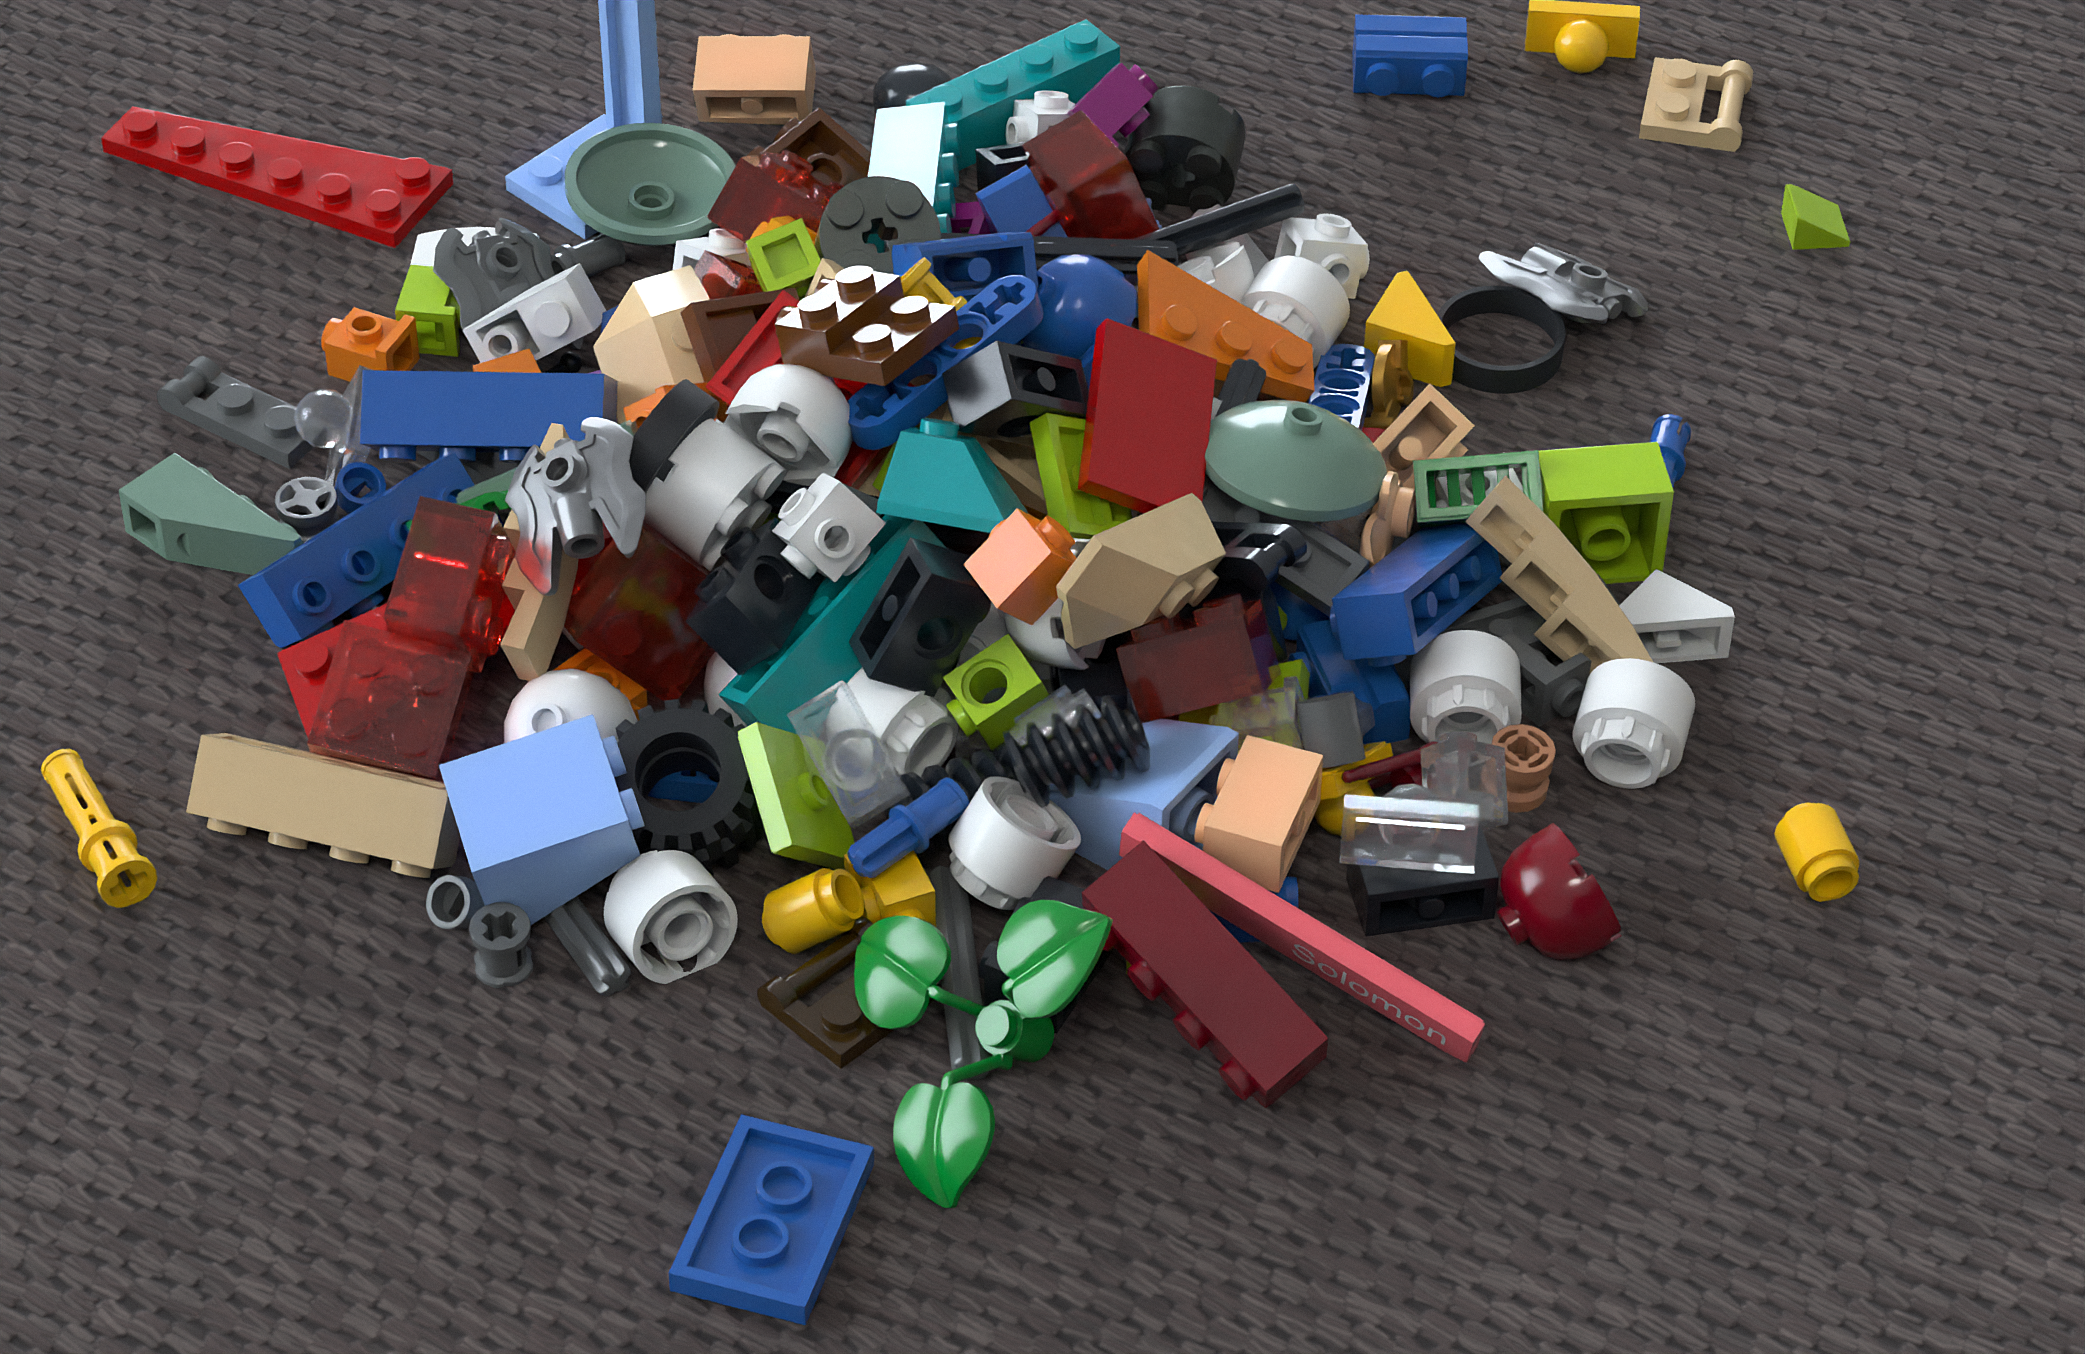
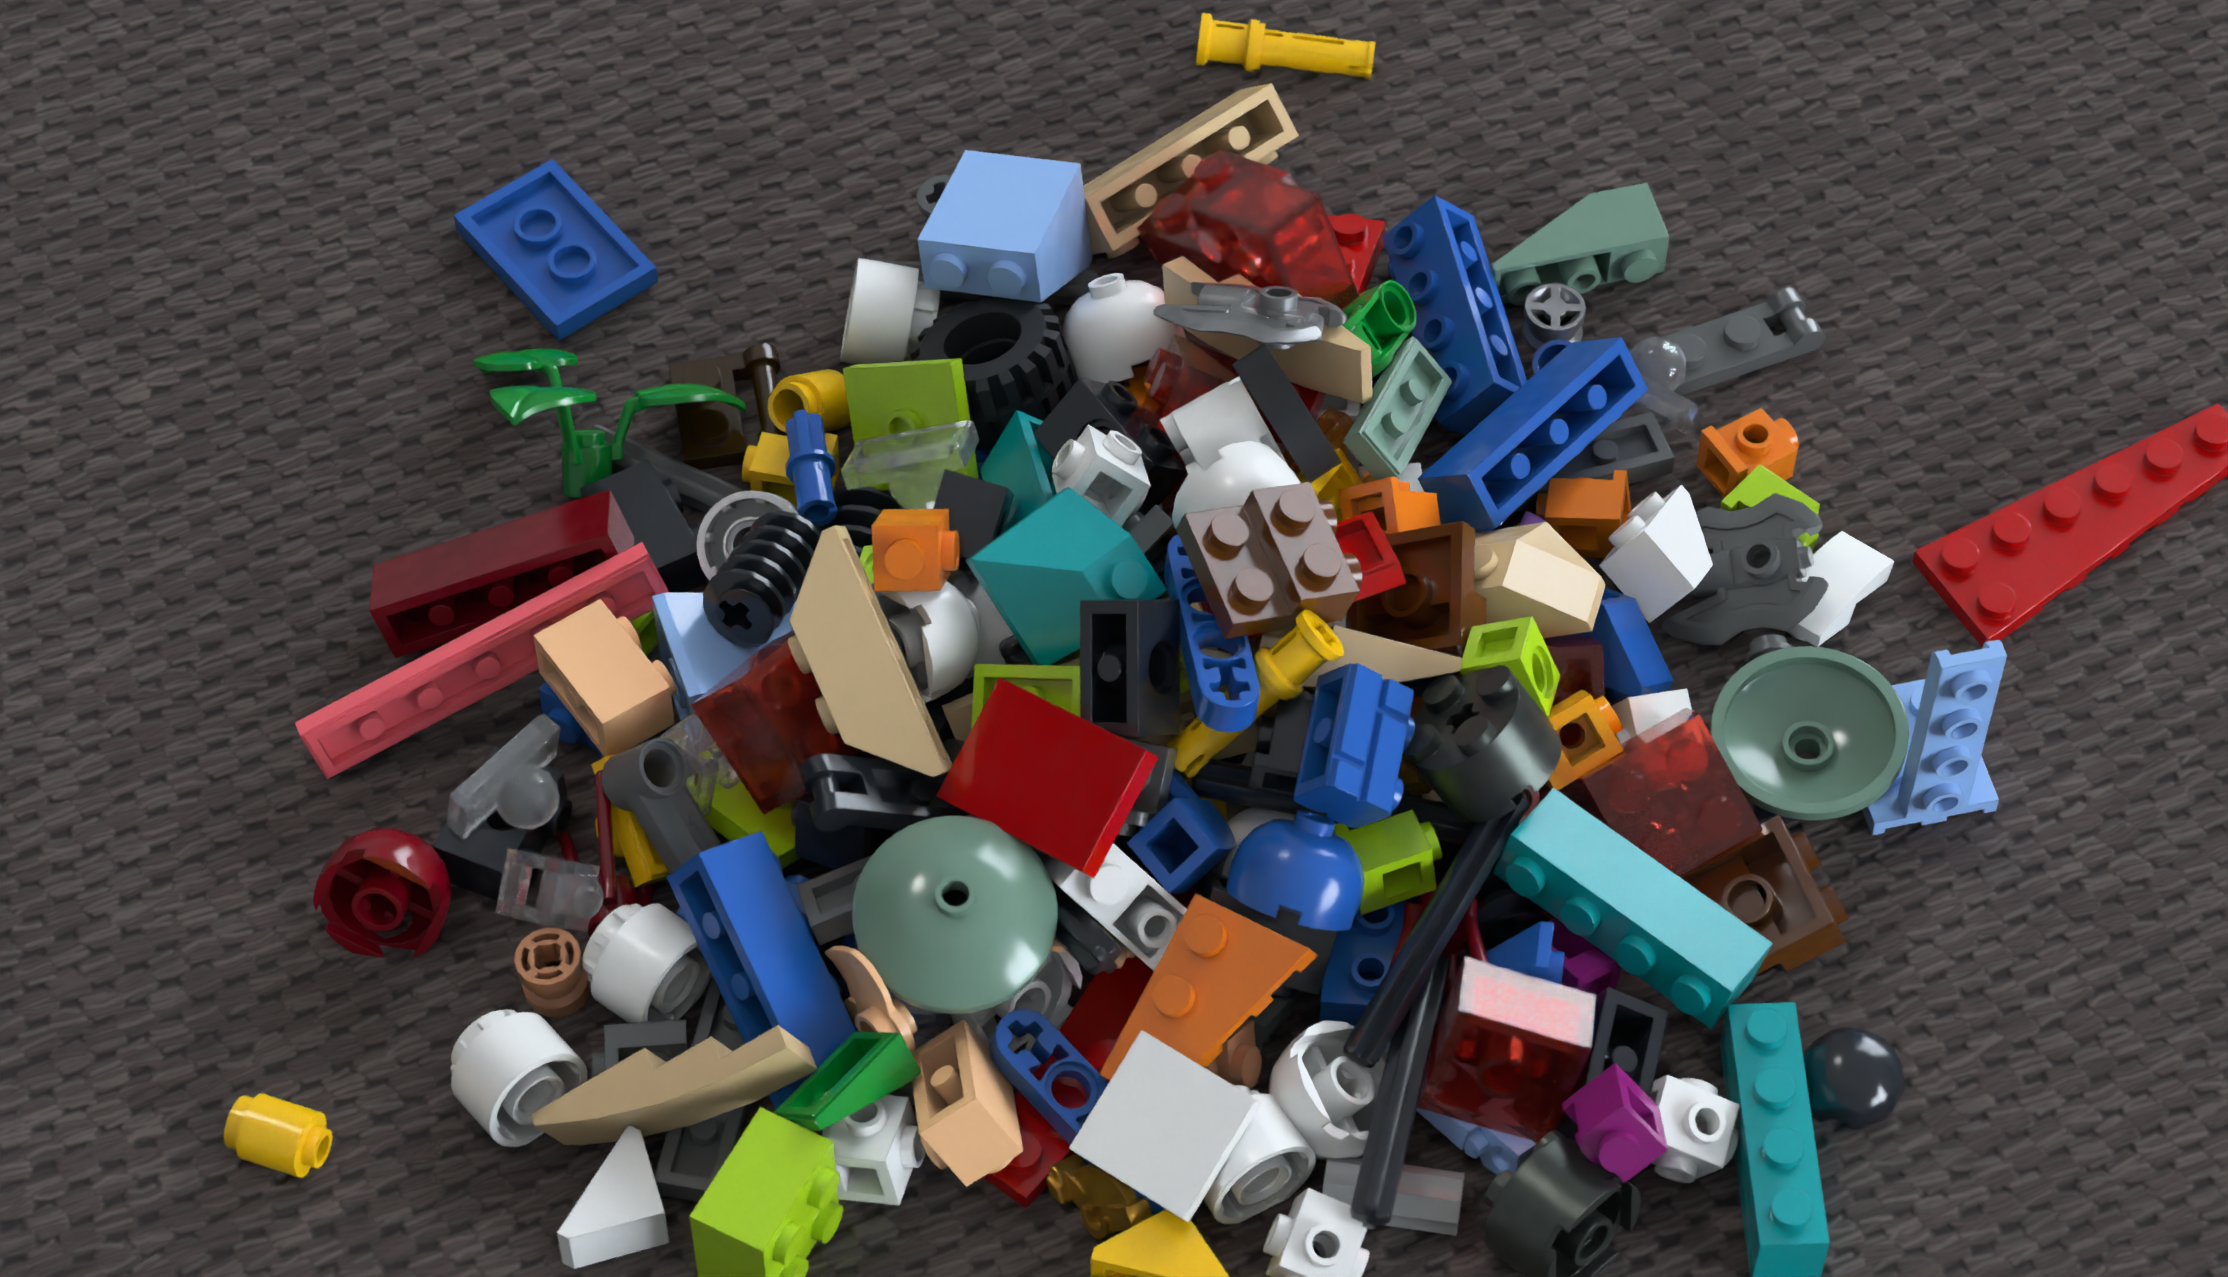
camera: 125 degrees right, 10 degrees up
(754, 79) = (1952, 930): light nougat brick -> none
(1333, 317) = (1165, 1125): none -> white tile

